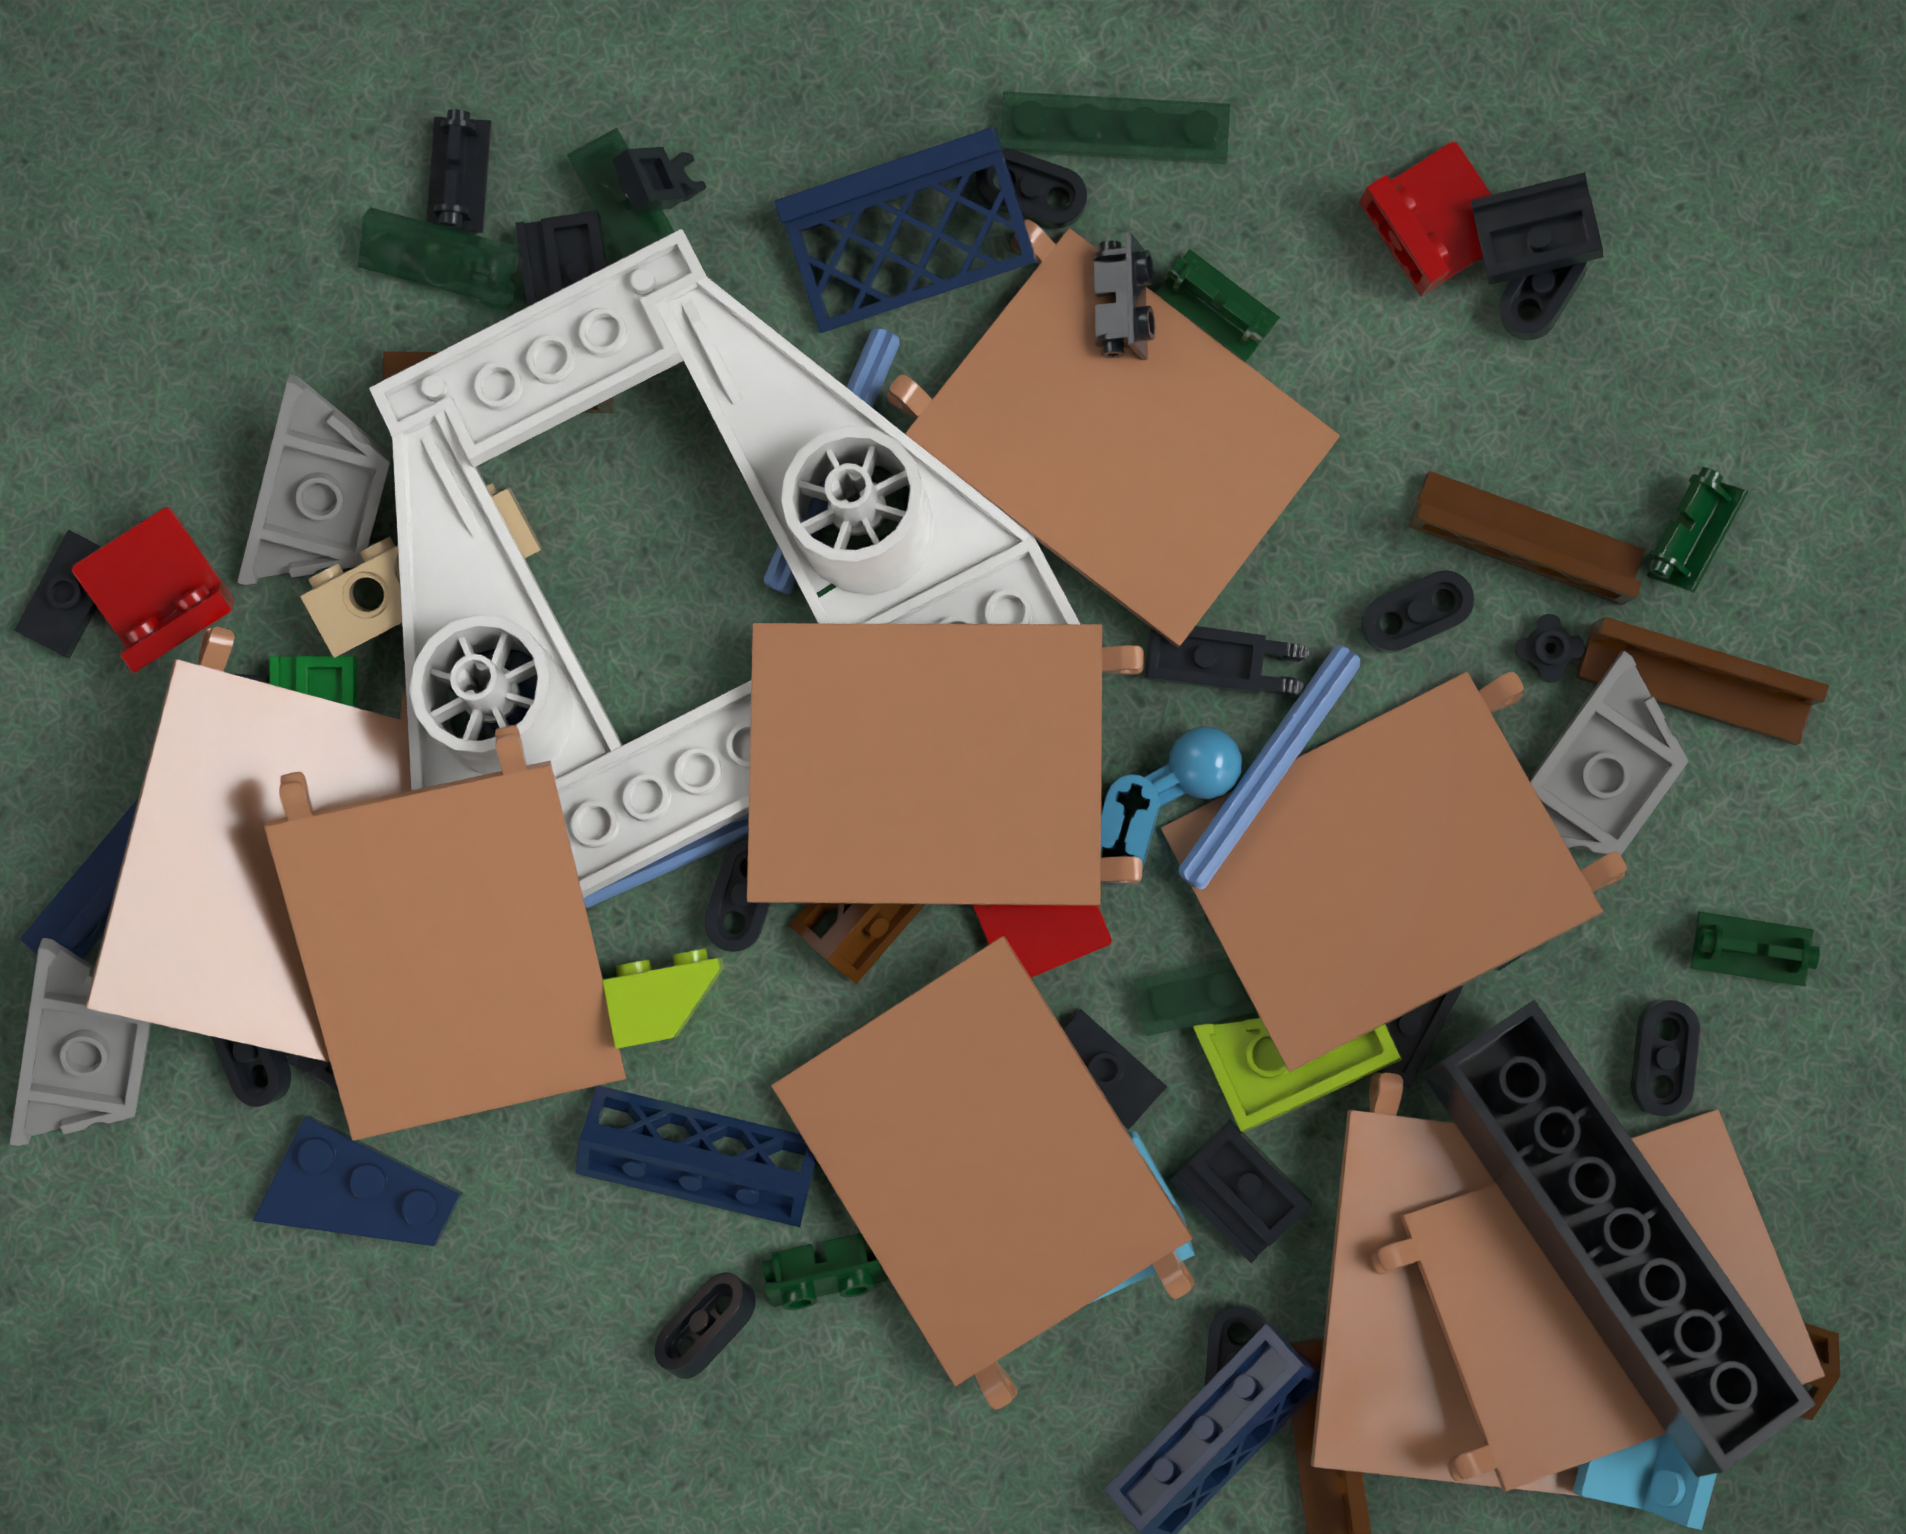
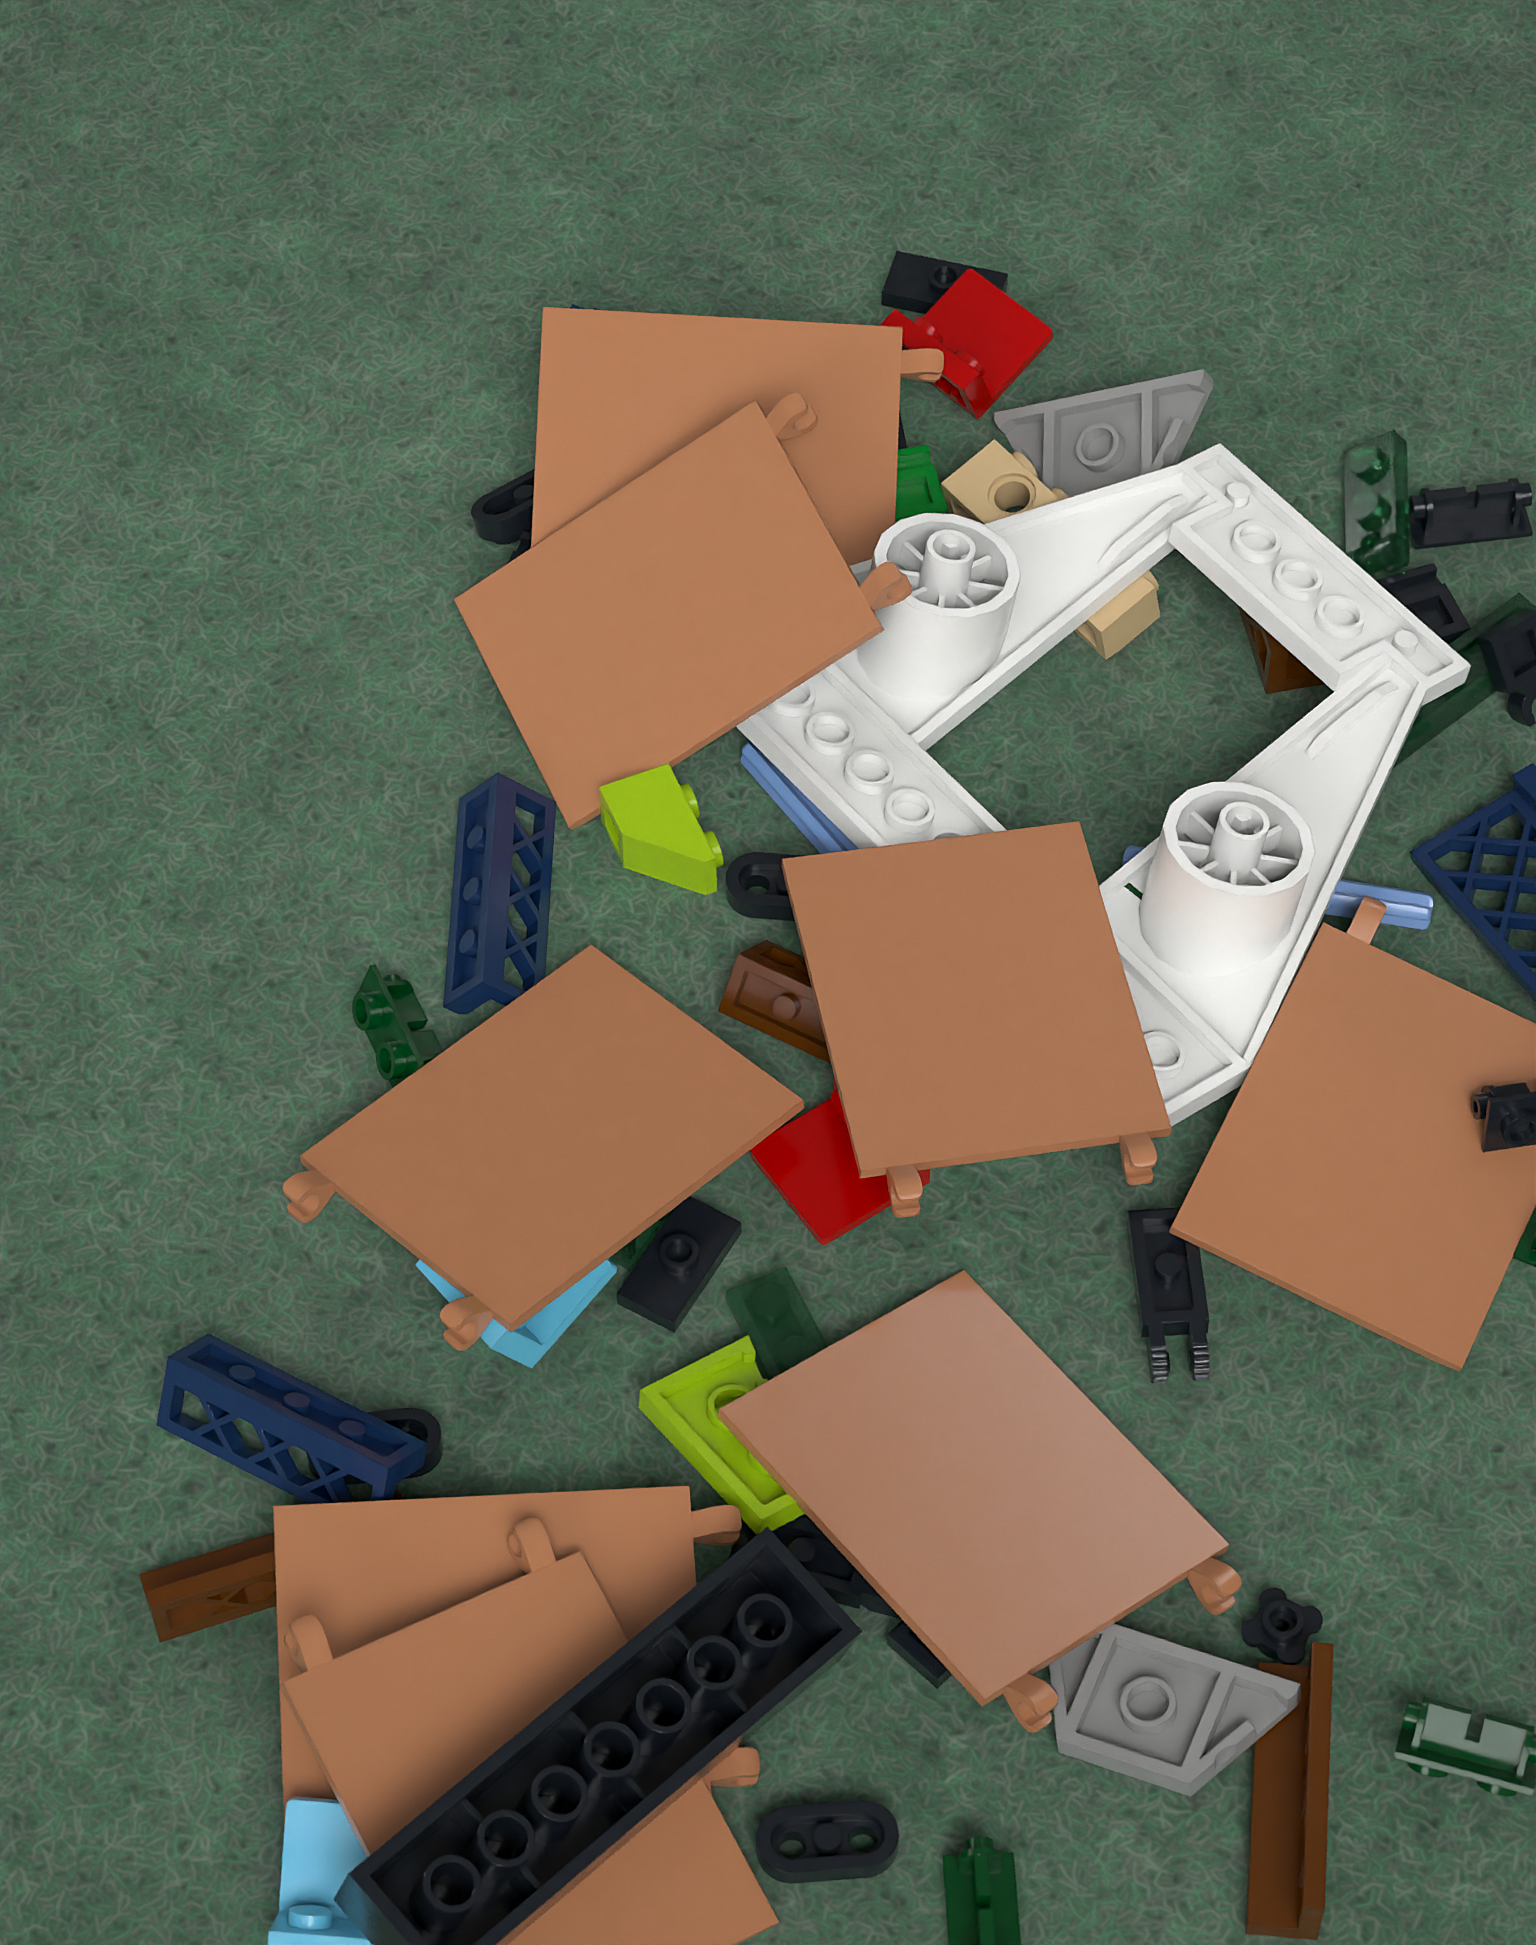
camera: 75 degrees right, 30 degrees down
(75, 1059) = (485, 364): light grey wing -> none
(354, 1190) = (403, 619): dark blue wing -> none
(705, 1325) = (305, 926): black plate -> none
(1201, 764) = (974, 1229): dark azure beam -> none
(1240, 1191) = (570, 1417): black plate -> none
(1269, 767) = (1062, 1355): medium blue axle -> none
(1416, 611) = (1289, 1477): black plate -> none
(1527, 538) = (1403, 1577): reddish brown fence -> none

